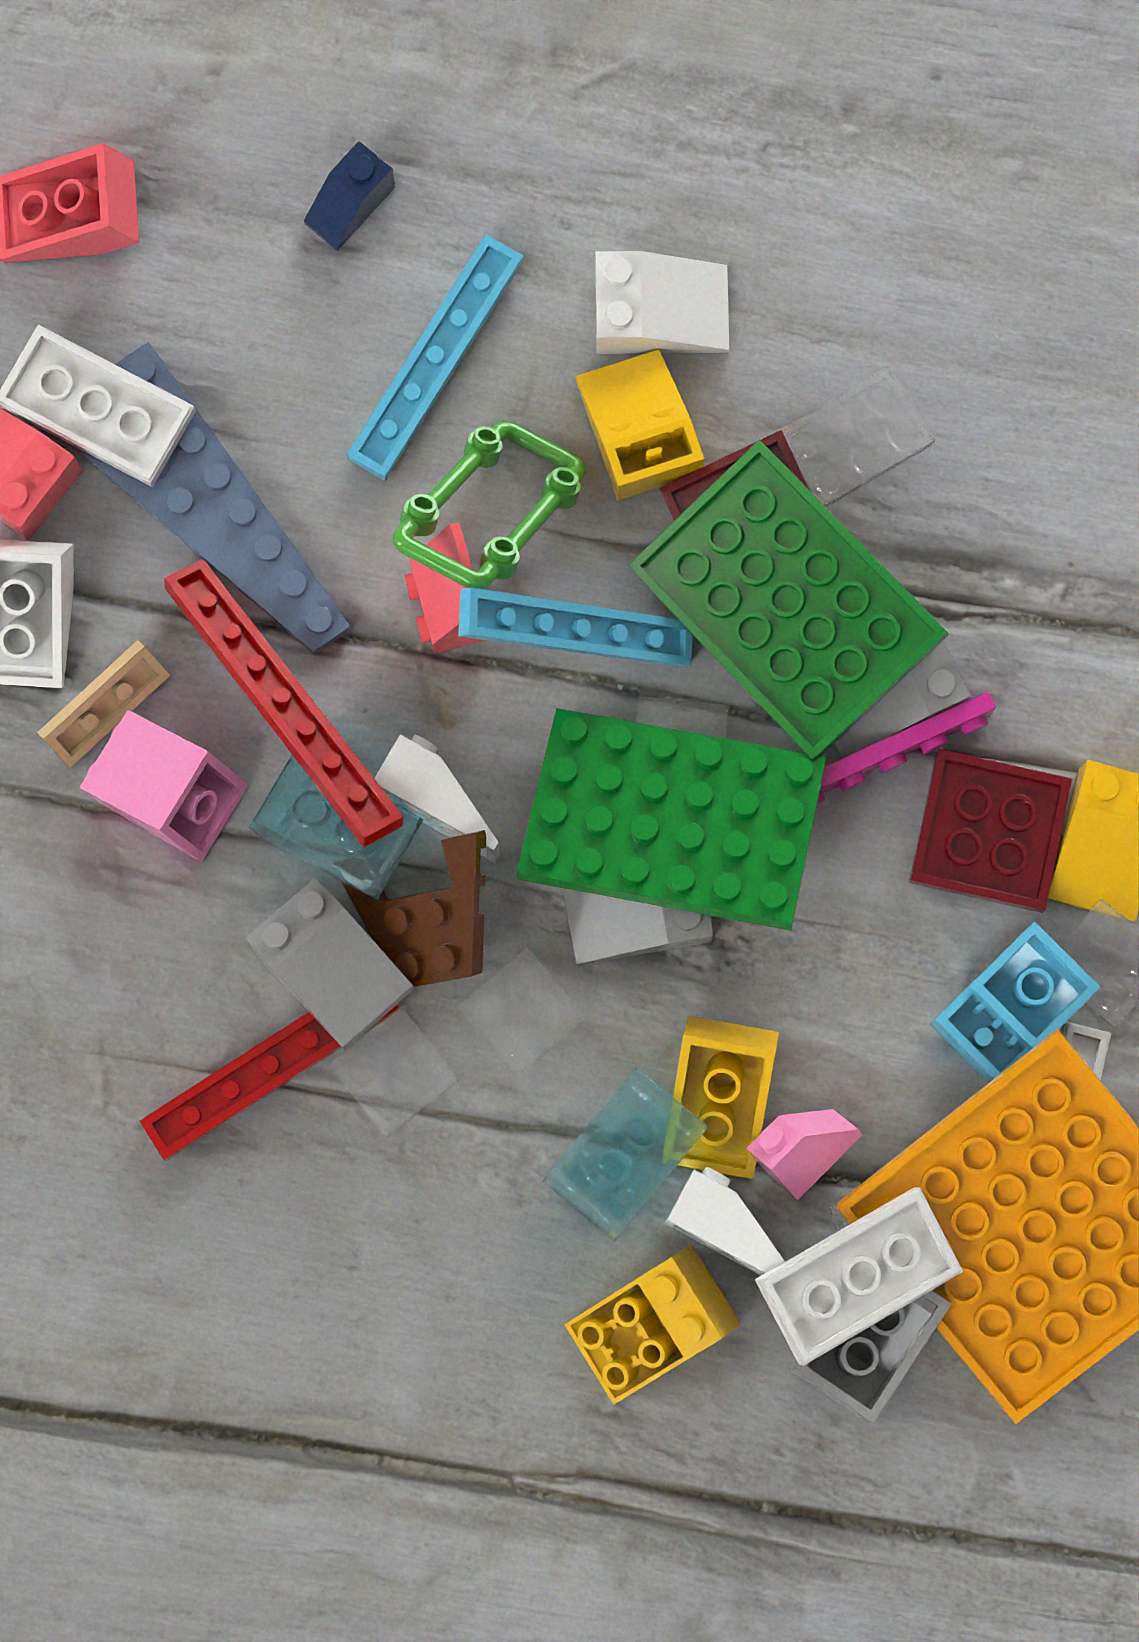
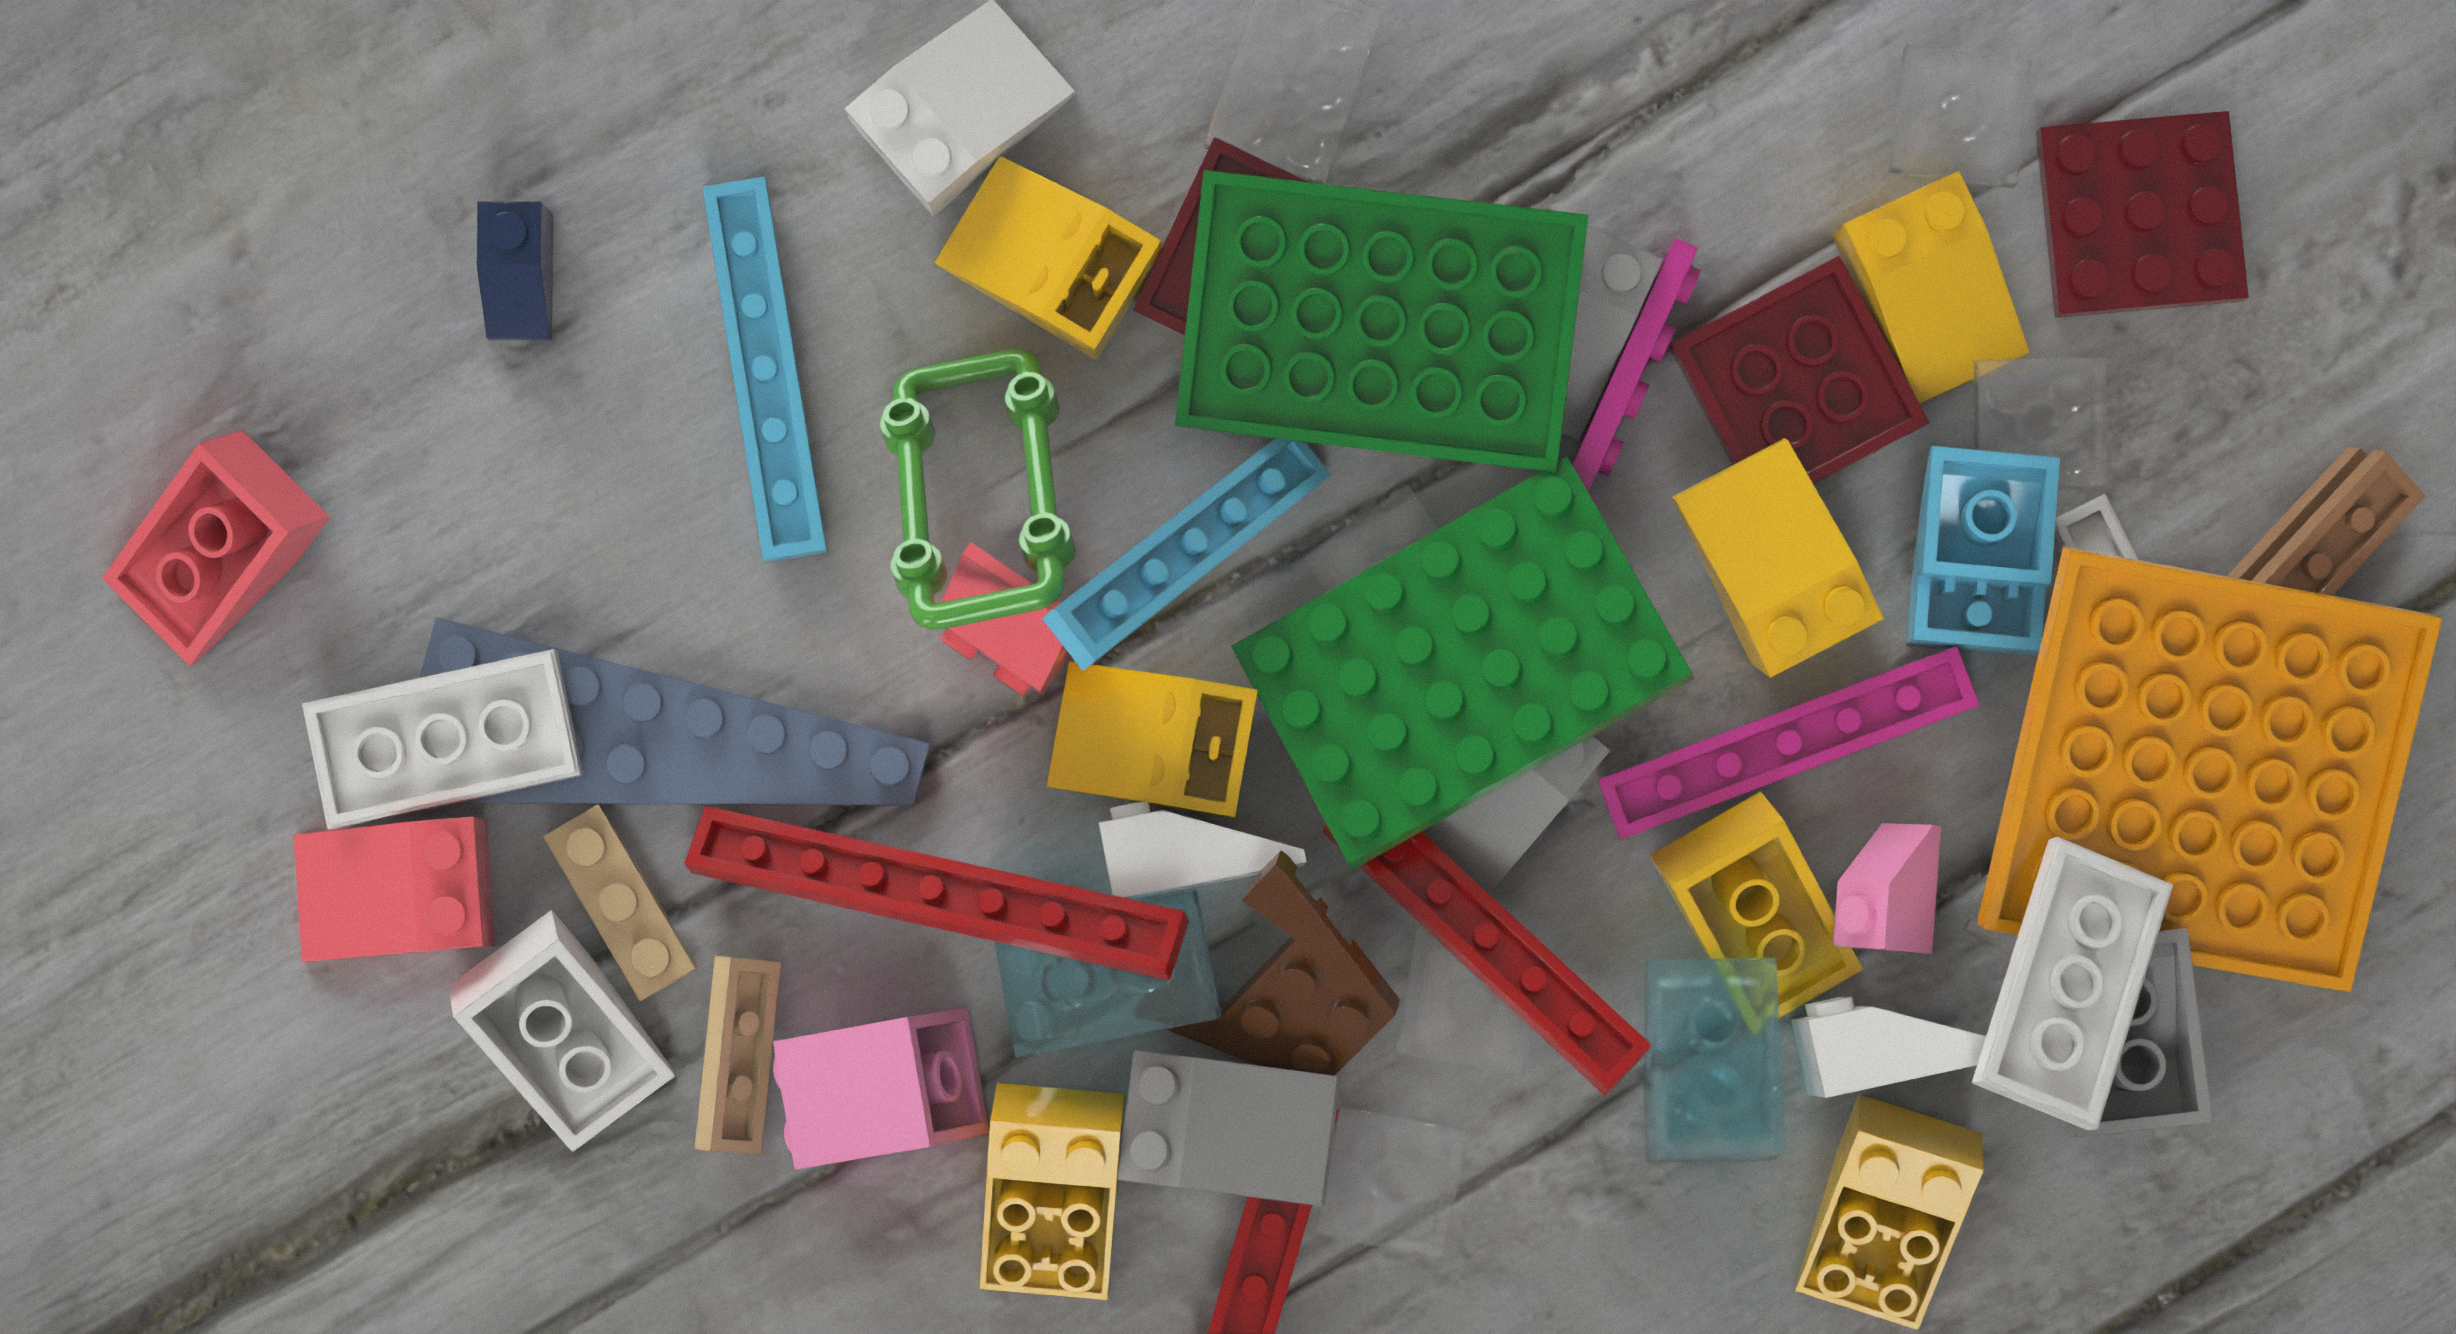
camera: 40 degrees left, 5 degrees up
(113, 573) = (620, 902): none -> tan plate
(205, 918) = (1051, 1191): none -> yellow slope
(473, 724) = (1152, 739): none -> yellow slope
(560, 1002) = (1508, 959): none -> red plate
(817, 1019) = (1787, 743): none -> dark pink plate
(896, 911) = (1777, 559): none -> yellow slope

